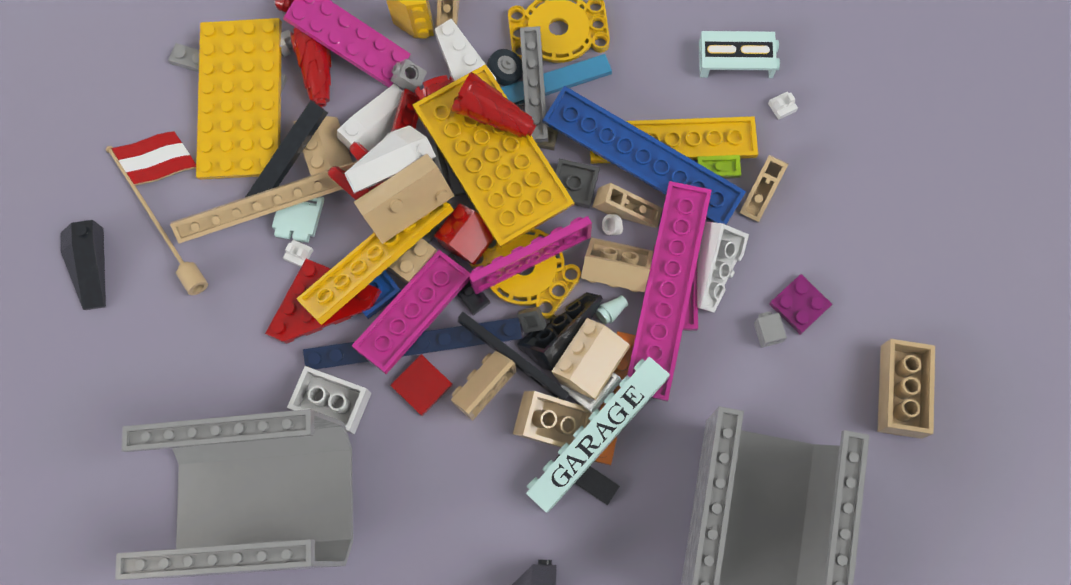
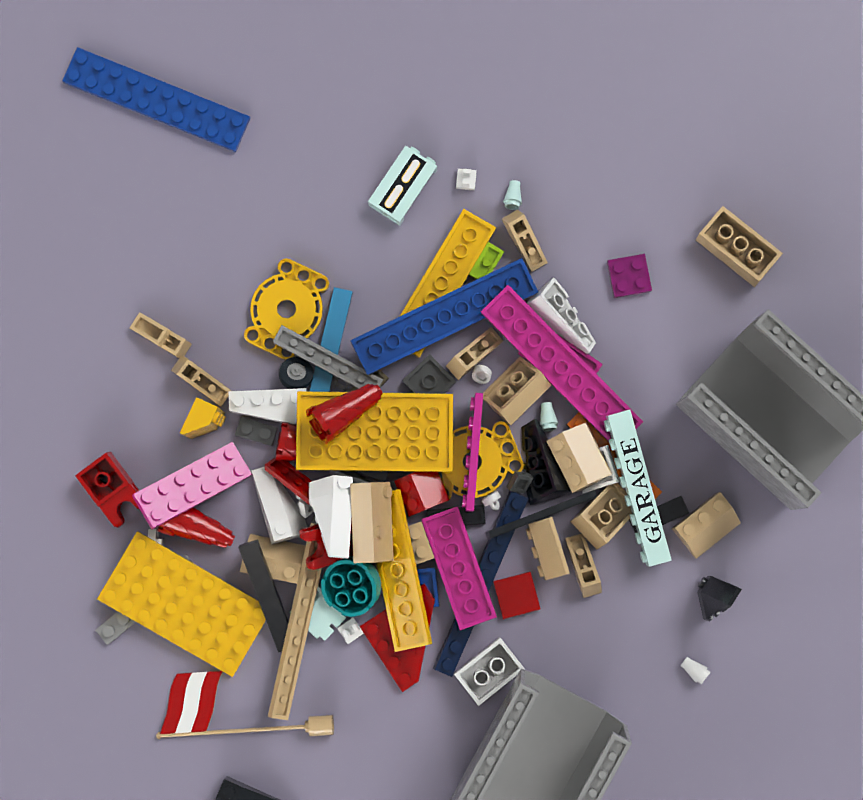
camera: 65 degrees left, 10 degrees up
(336, 223) = (351, 586): none -> teal cylinder
(415, 73) = (259, 451): light grey brick -> none
(431, 62) = (256, 431): none -> dark grey plate
(487, 431) = (583, 566): none -> tan slope
(501, 304) = (492, 500): none -> white tile
(607, 531) = (707, 524): none -> tan slope
(769, 329) = (635, 312): light grey brick -> none
(796, 153) = (513, 196): none -> light aqua cone

